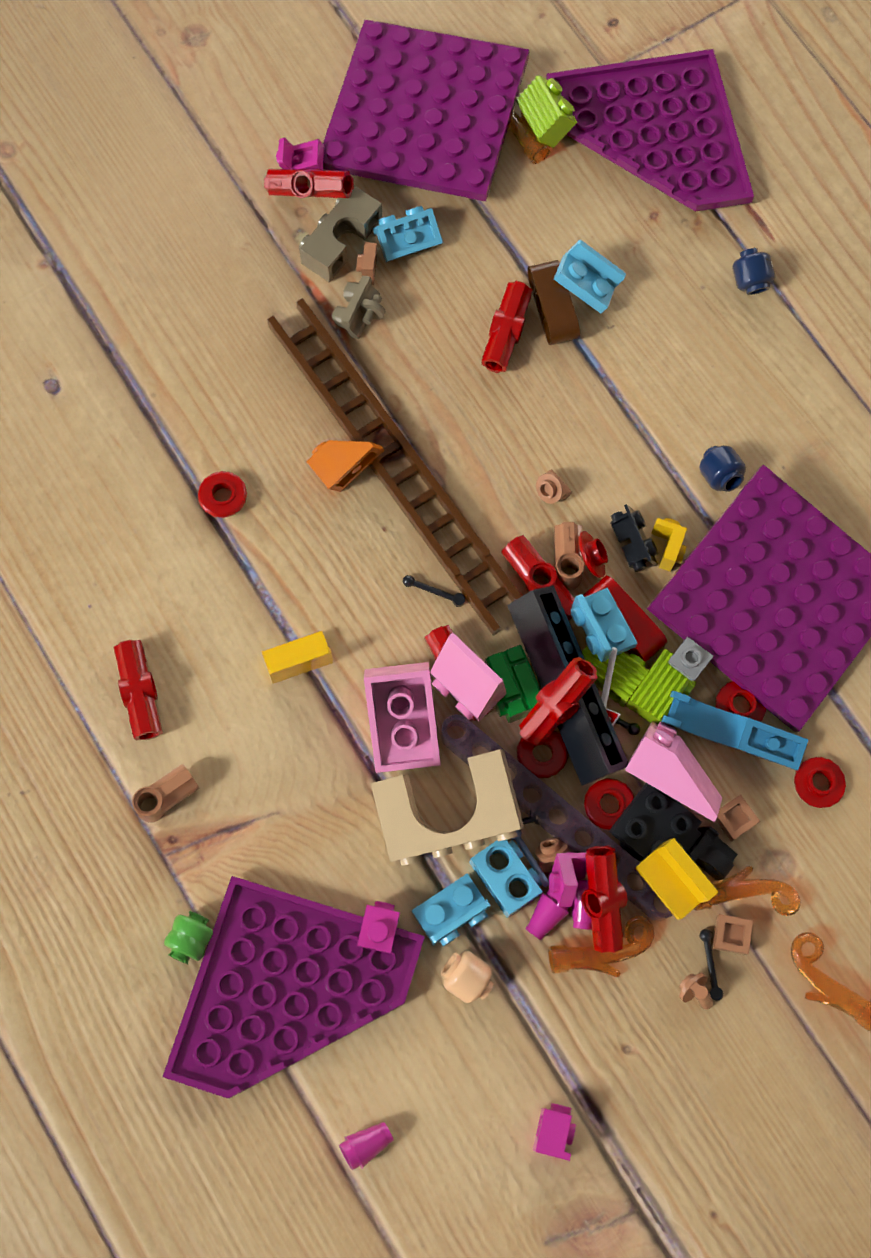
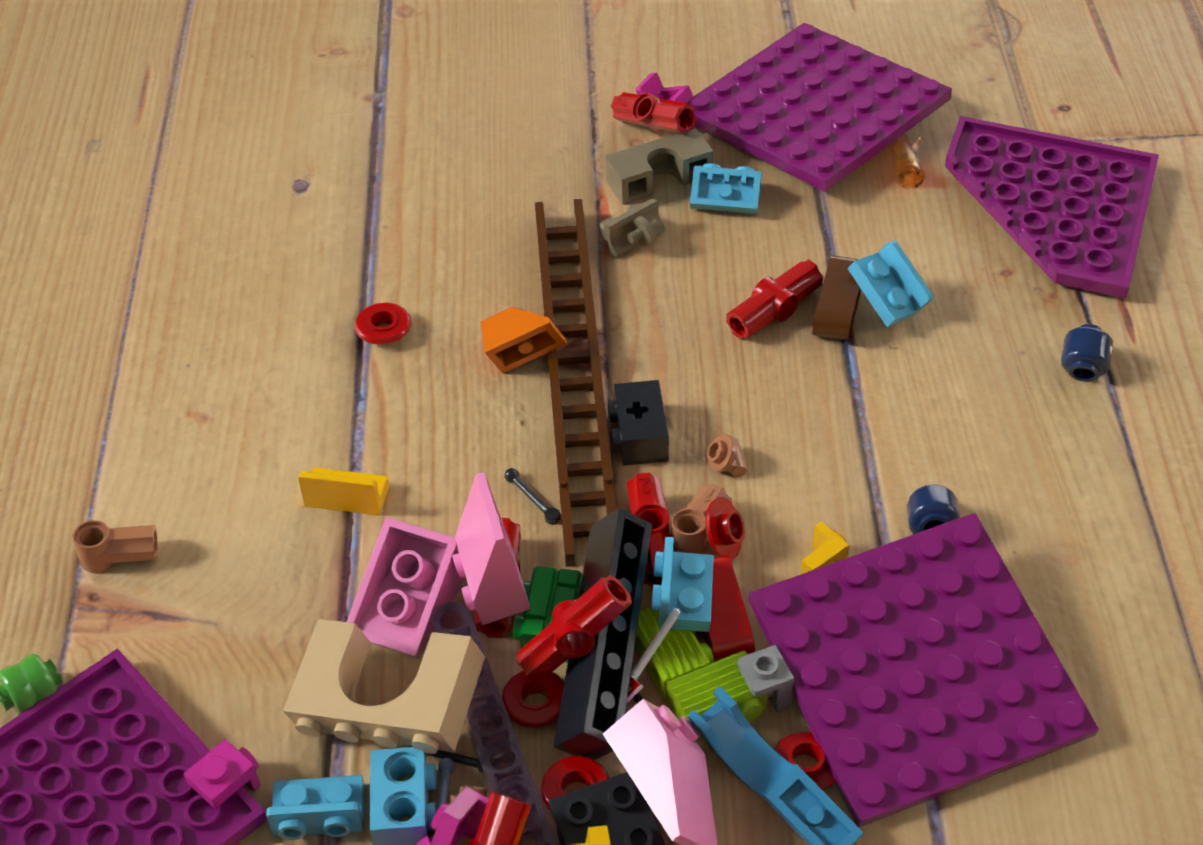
camera: 35 degrees right, 25 degrees down
(137, 690) = (168, 446): red piece -> none
(367, 261) = (670, 196): nougat plate -> none
(475, 475) = (640, 423): none -> black brick
(546, 110) = (937, 139): lime brick -> none
(630, 527) = (790, 527): black hinge -> none

